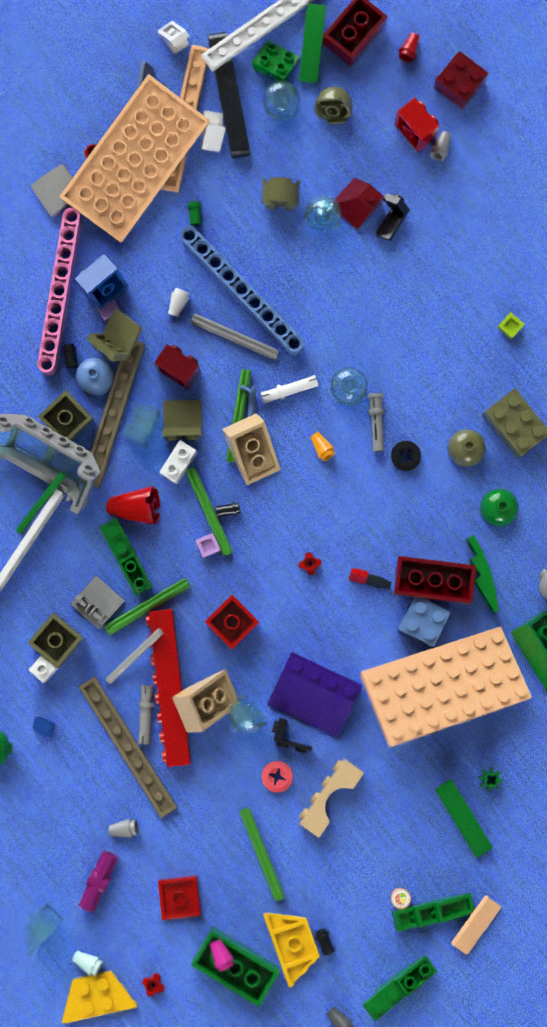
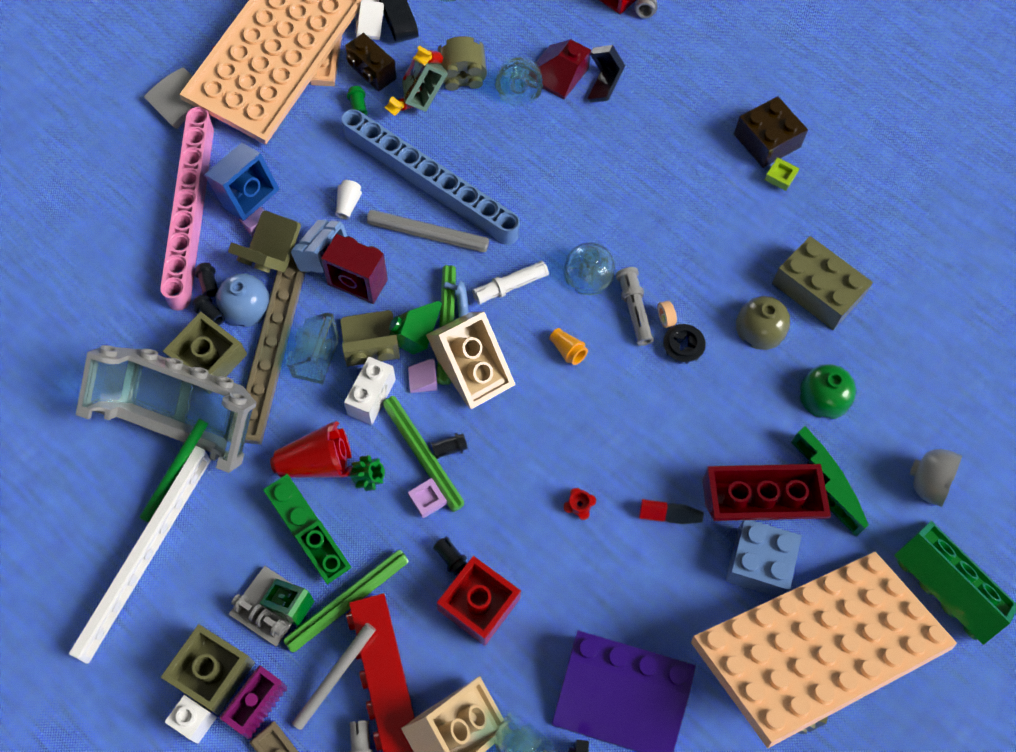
camera: 10 degrees left, 20 degrees down
(70, 382) = (204, 304): none -> black pin
(83, 664) = (253, 702): none -> magenta brick
(108, 603) = (288, 601): none -> green slope
(153, 342) = (315, 243): none -> medium blue brick
(169, 522) = (367, 473): none -> green gear
(209, 178) = (371, 61): none -> dark brown brick
(215, 417) = (414, 326): none -> green slope
(216, 455) = (422, 377): none -> lavender slope
(218, 587) = (450, 555): none -> black pin
(246, 209) = (420, 82): none -> torso
(398, 432) = (667, 314): none -> light nougat tile
(510, 287) = (770, 131): none -> dark brown brick

